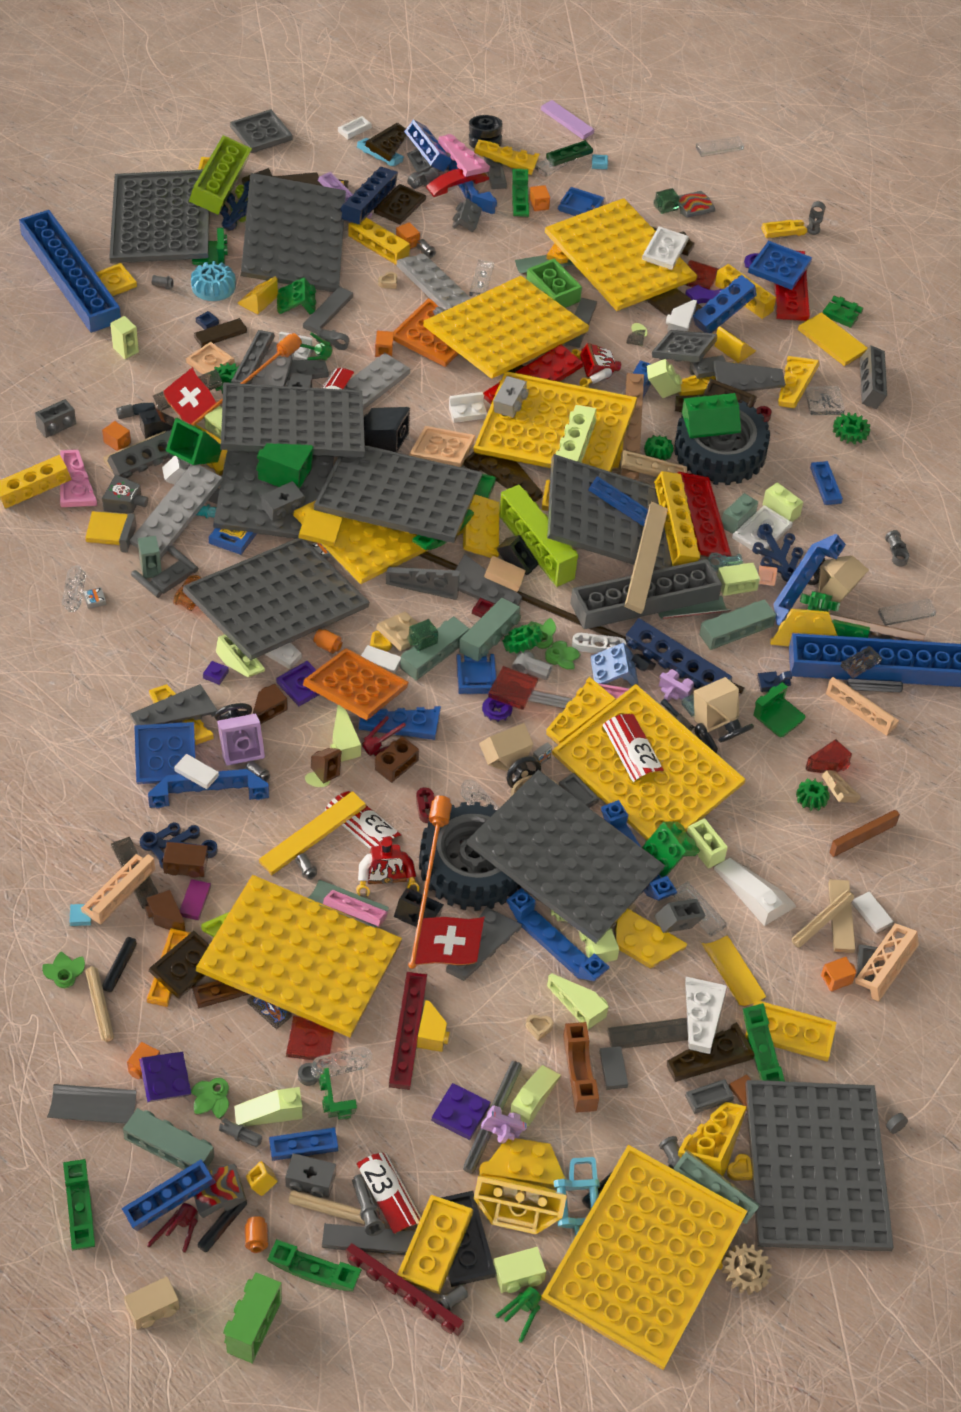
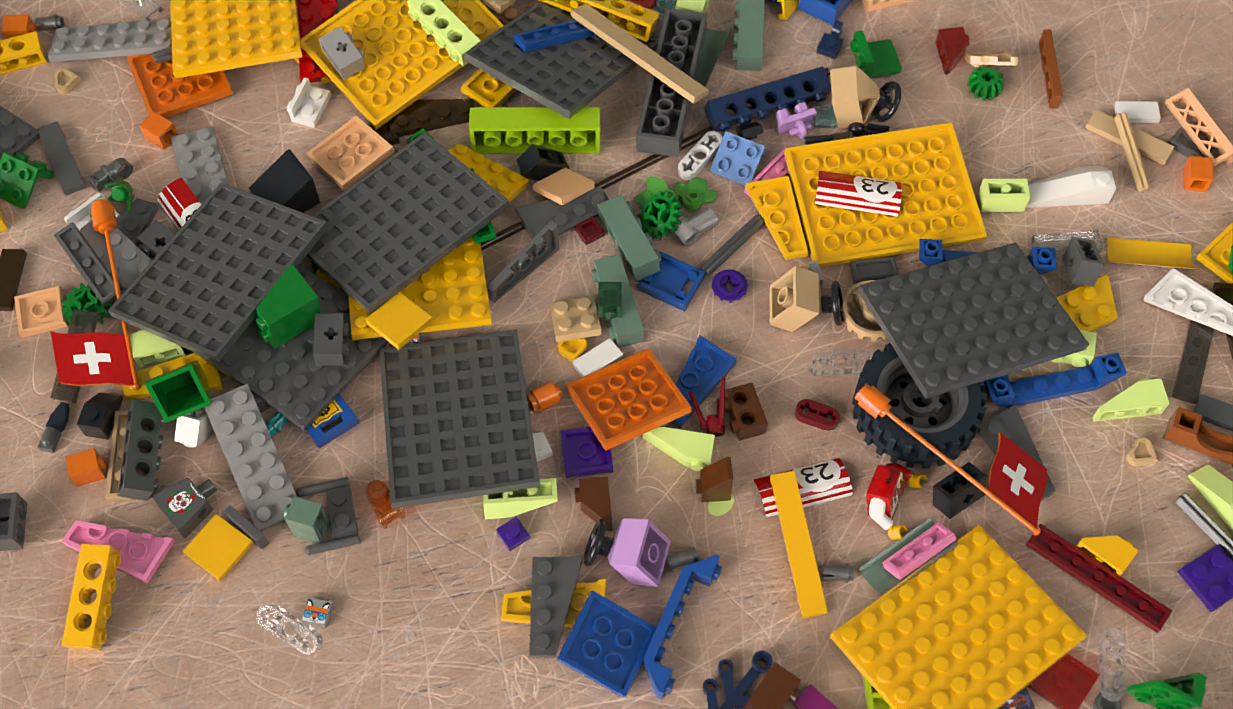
camera: 55 degrees left, 10 degrees up
(196, 771) = (660, 622): white tile -> none
(513, 688) = (718, 256): clear red tile -> none
(670, 845) = (993, 225): green bracket -> none

